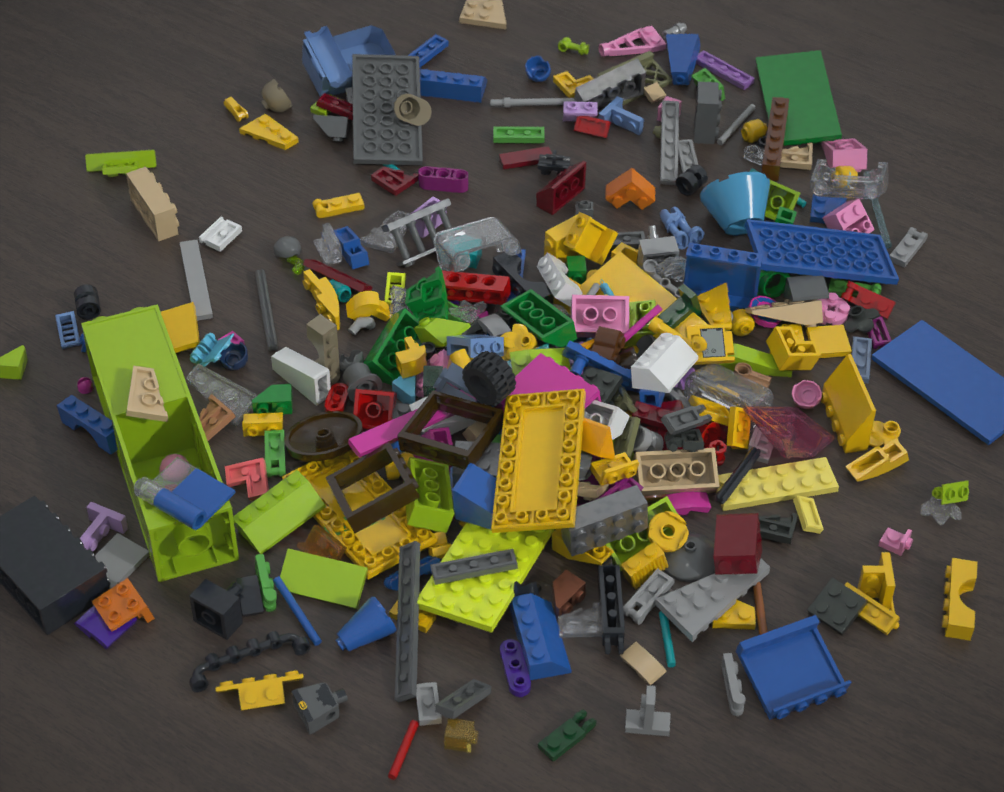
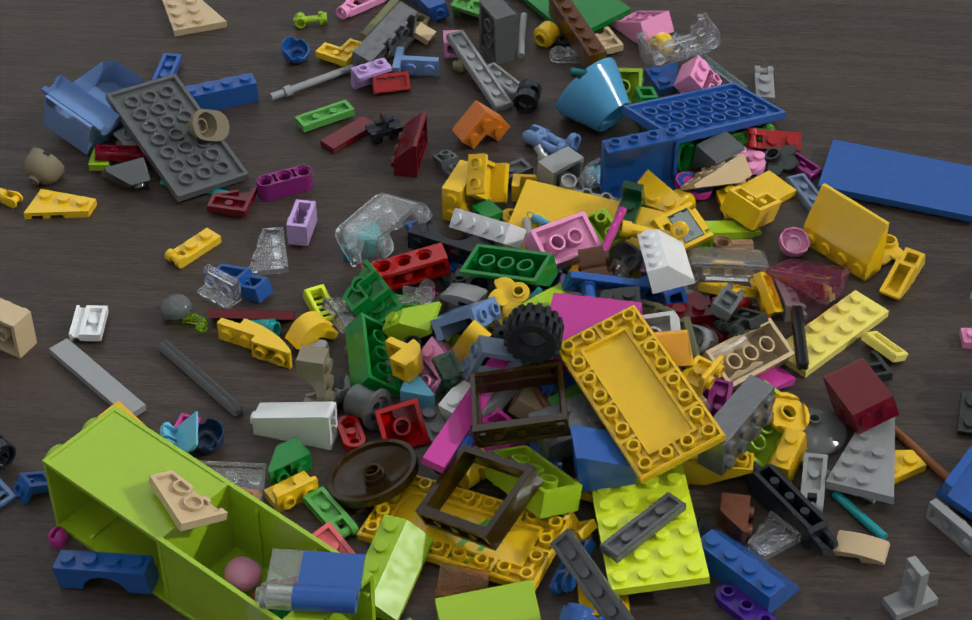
camera: 30 degrees left, 5 degrees down
(409, 221) = (295, 229): dark grey fence -> none

